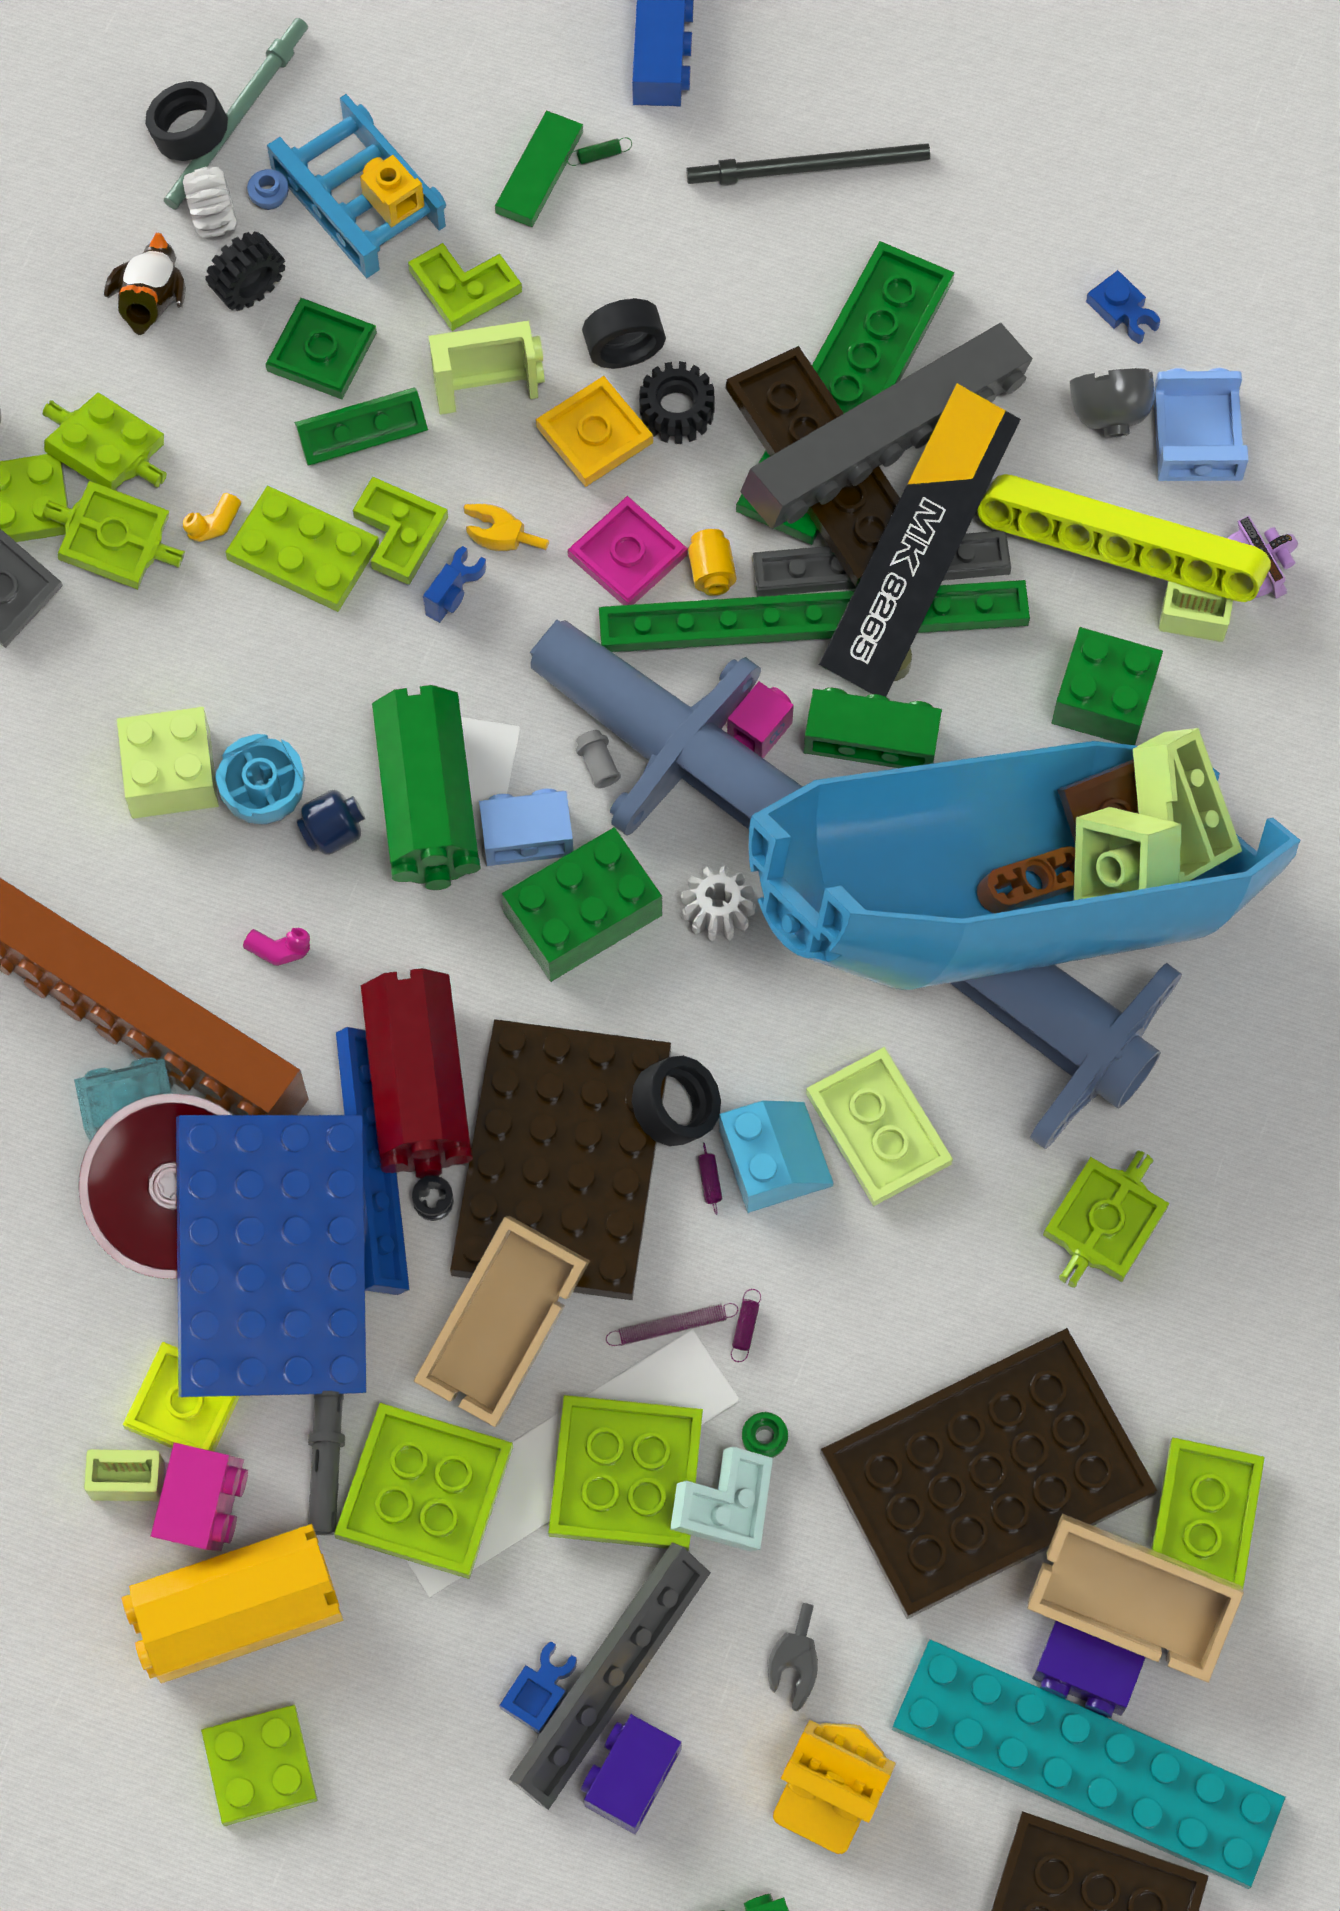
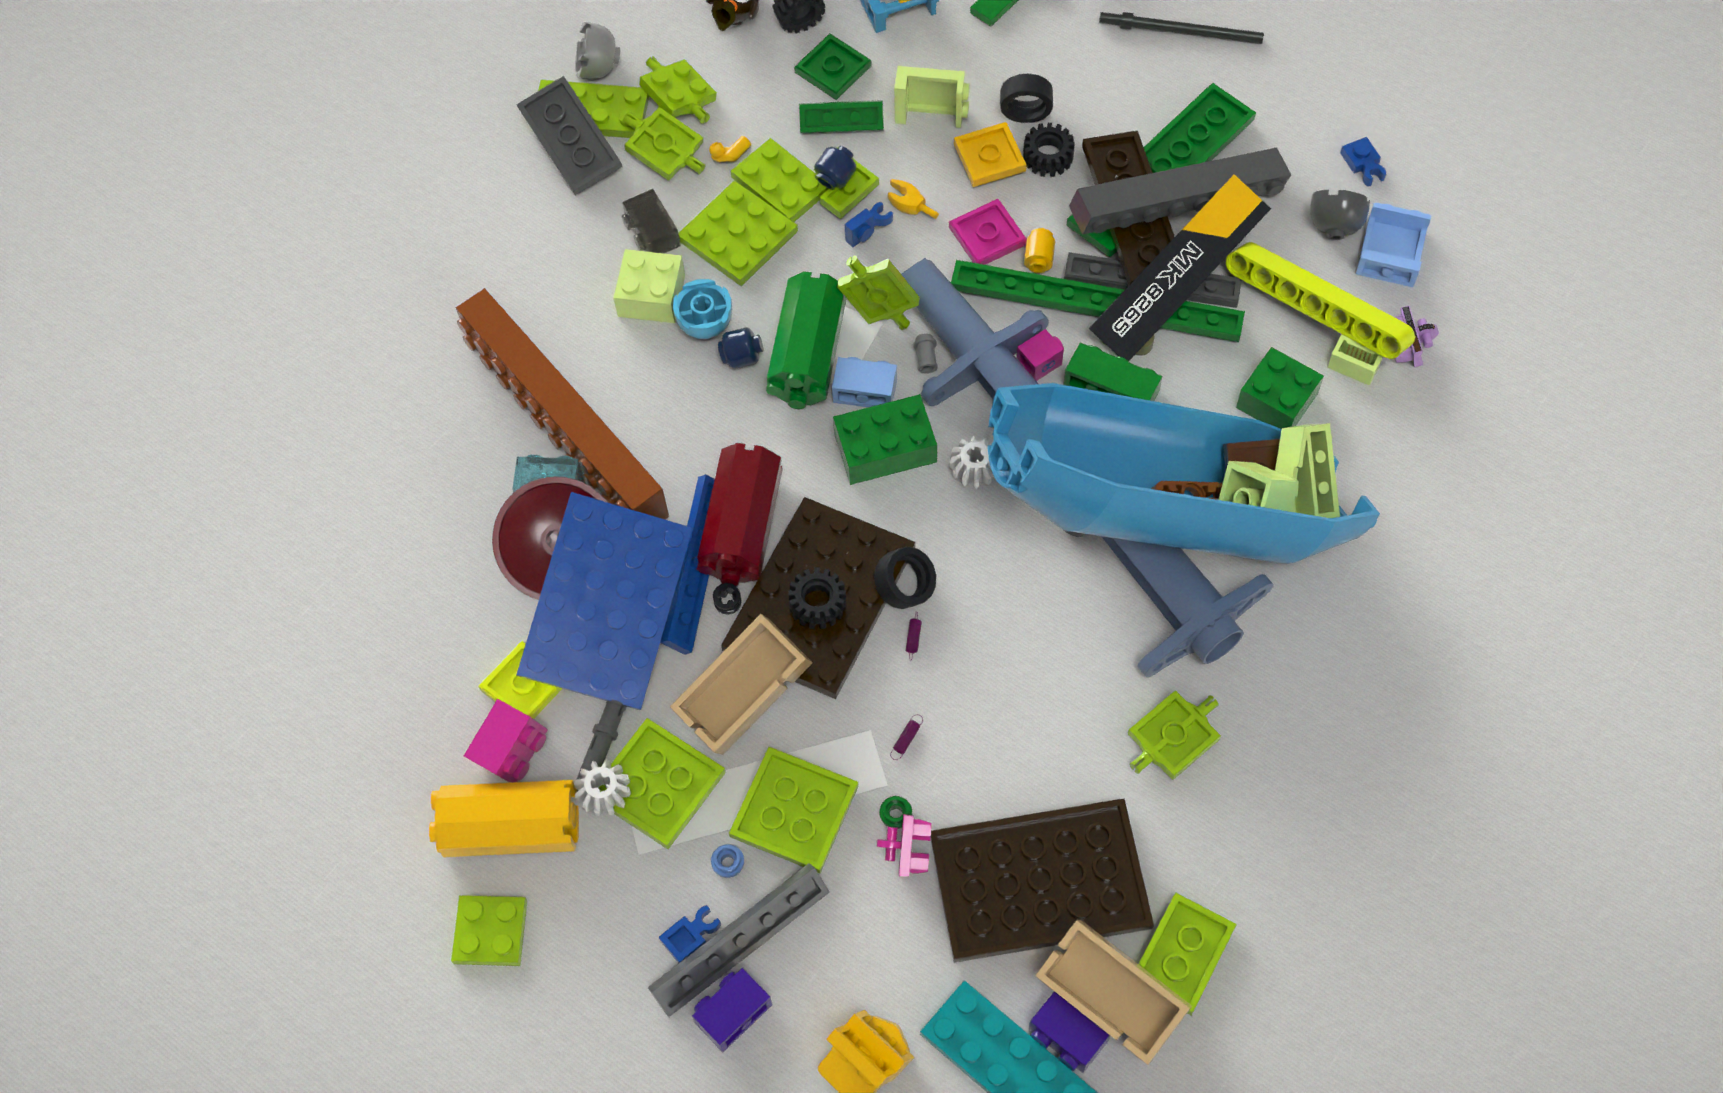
camera: 20 degrees right, 5 degrees down
(124, 1475) = (462, 715): yellowish green piece -> none
(137, 665) = (650, 223): none -> clear smoke brick
(266, 645) = (737, 233): none -> lime plate
(280, 951) = (678, 419): dark pink arm -> none
(351, 1538) = (610, 777): none -> white gear
(382, 512) = (835, 167): none -> dark blue head
(462, 294) = (935, 54): lime plate -> none
(509, 690) = (878, 292): none -> lime plate
(554, 1556) = (724, 852): none -> medium blue plate
(570, 1192) = (813, 582): none -> black tyre
(672, 1330) = (858, 720): piece -> none
(734, 1511) = (855, 855): light aqua plate -> none
(773, 1152) = (961, 629): medium azure slope -> none
(798, 1653) = (870, 962): dark grey hand -> none
(804, 1498) = (909, 861): none -> hips
(879, 1126) = (1037, 632): yellowish green plate -> none

